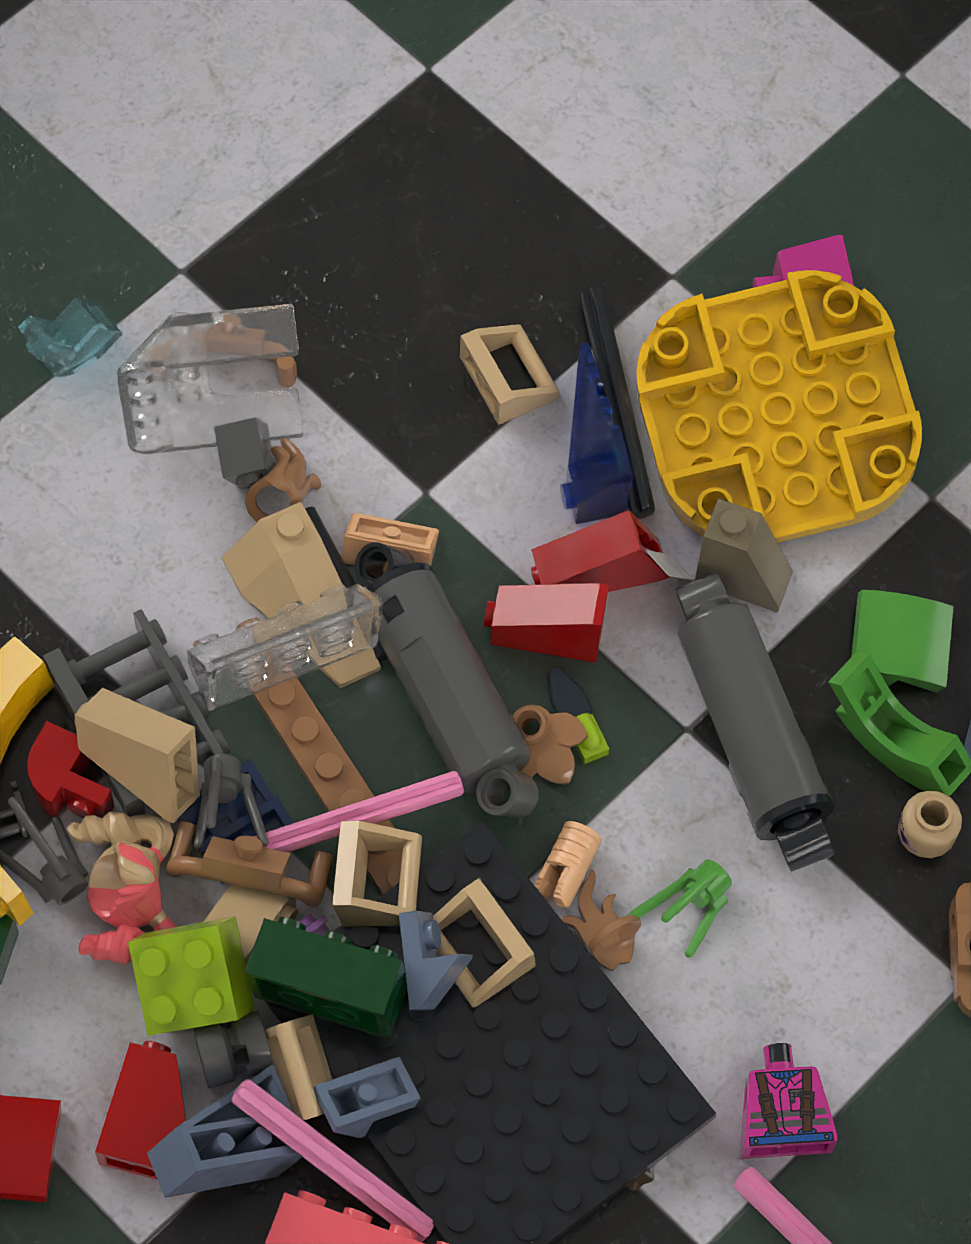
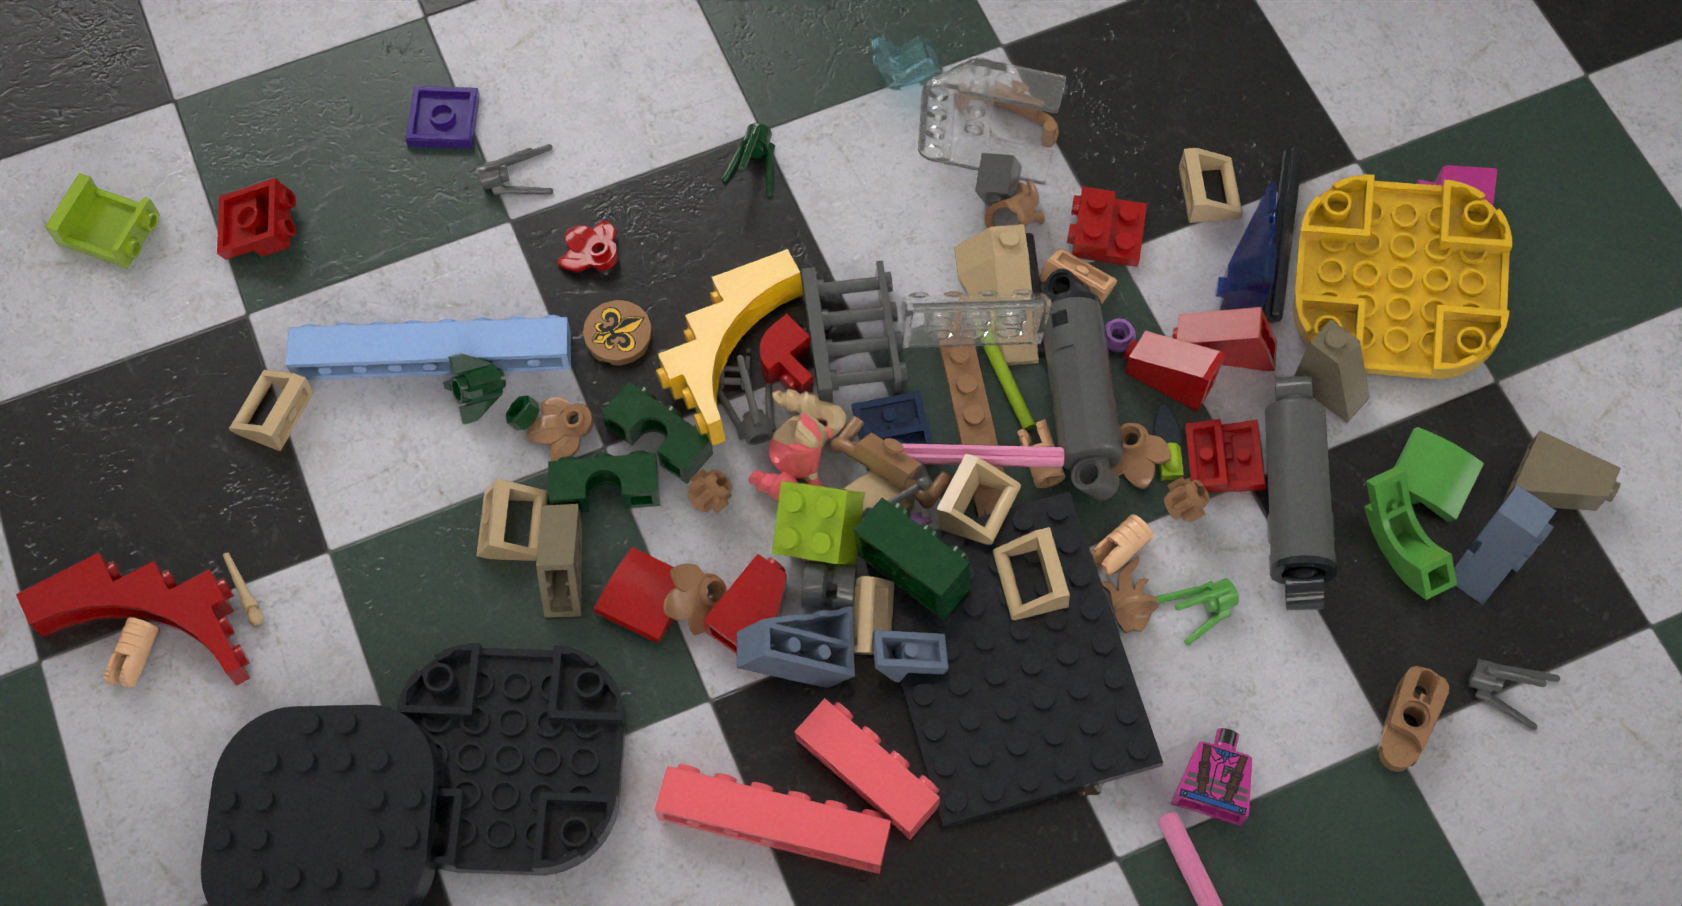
camera: 25 degrees right, 0 degrees up
(36, 984) = (709, 491): none -> medium nougat gear
(69, 1125) = (690, 596): none -> medium nougat plate
(141, 750) = (844, 355): tan slope -> none
(221, 785) = (891, 400): dark grey plant -> none
(302, 879) = (922, 484): none -> dark grey hinge
(330, 1159) = (867, 688): bright pink axle -> none
(359, 713) = (1010, 387): none -> lime bar
(401, 467) = (1106, 227): none -> red plate
(426, 974) = (986, 580): sand blue slope -> none
(442, 813) = (1042, 476): none -> light nougat hinge
(468, 589) = (1120, 327): none -> medium lavender plate
(625, 779) = (1186, 499): none -> medium nougat gear
(650, 706) = (1226, 455): none -> red slope
(669, 565) = (1277, 359): white sticker -> none
(929, 824) = (1406, 613): tan head -> none

